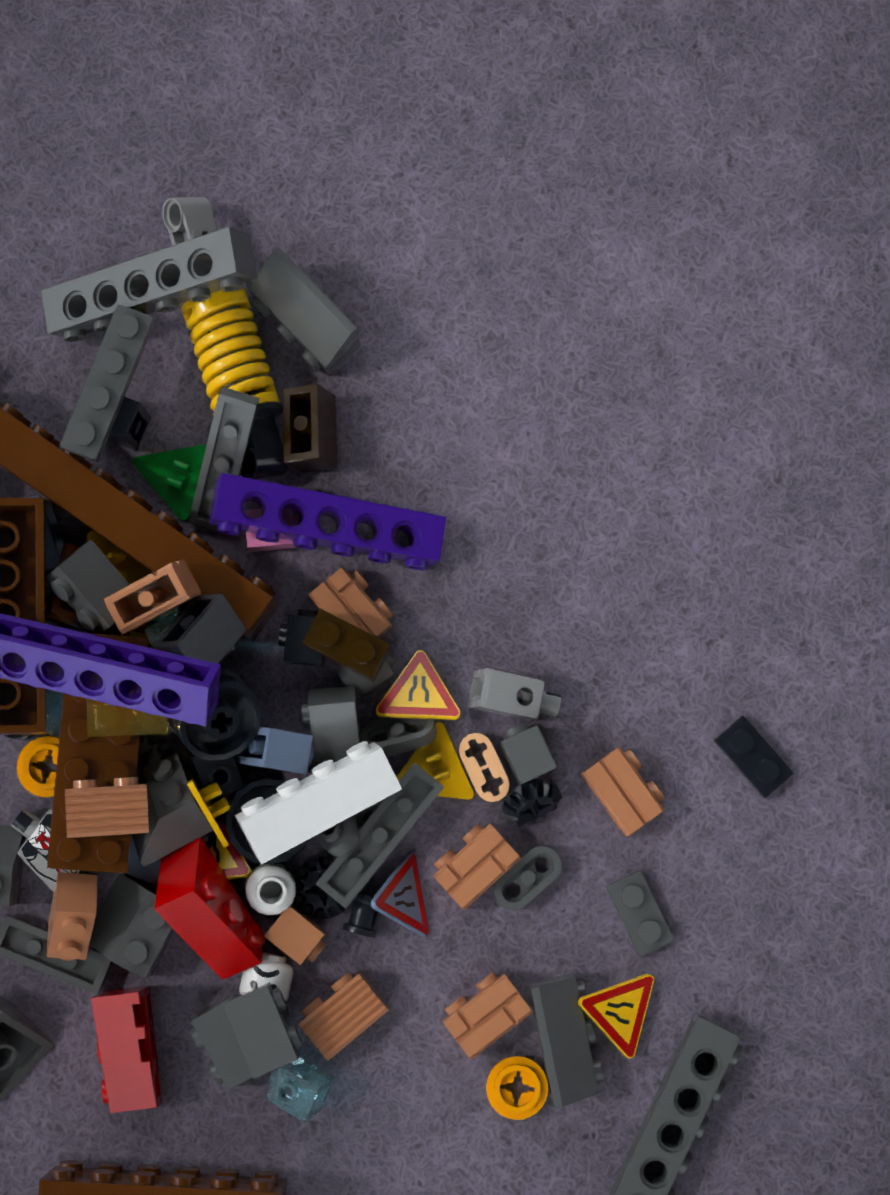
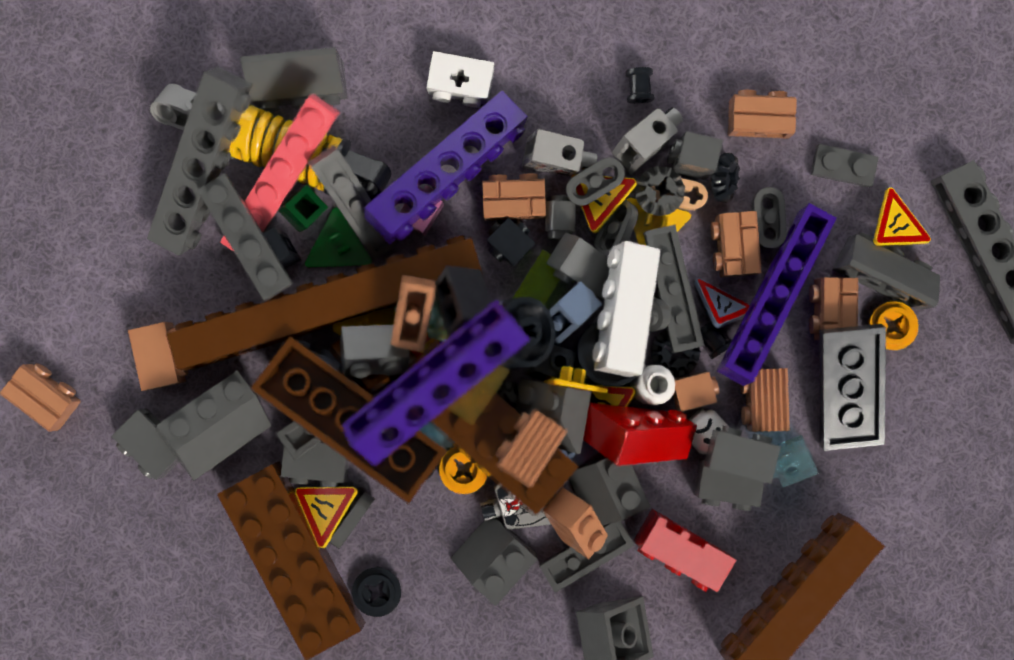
camera: 55 degrees left, 5 degrees up
(183, 415) = (302, 208): none -> dark green brick
(212, 368) = (289, 161): none -> coral plate
(284, 698) = (539, 281): none -> clear neon green plate
(309, 428) = (374, 133): dark brown brick -> none
(347, 645) = (539, 214): dark brown brick -> none
(419, 603) = (545, 151): none -> light grey torso
(419, 1091) = (852, 386): none -> plate
(427, 447) = (446, 70): none -> white brick
(427, 677) = (595, 181): none -> dark grey plate
(451, 941) = (776, 295): none -> dark purple brick
(484, 757) = (646, 196): none -> dark grey gear
(559, 647) = (639, 85): none -> black bush
(753, 757) = (802, 18): black plate -> none

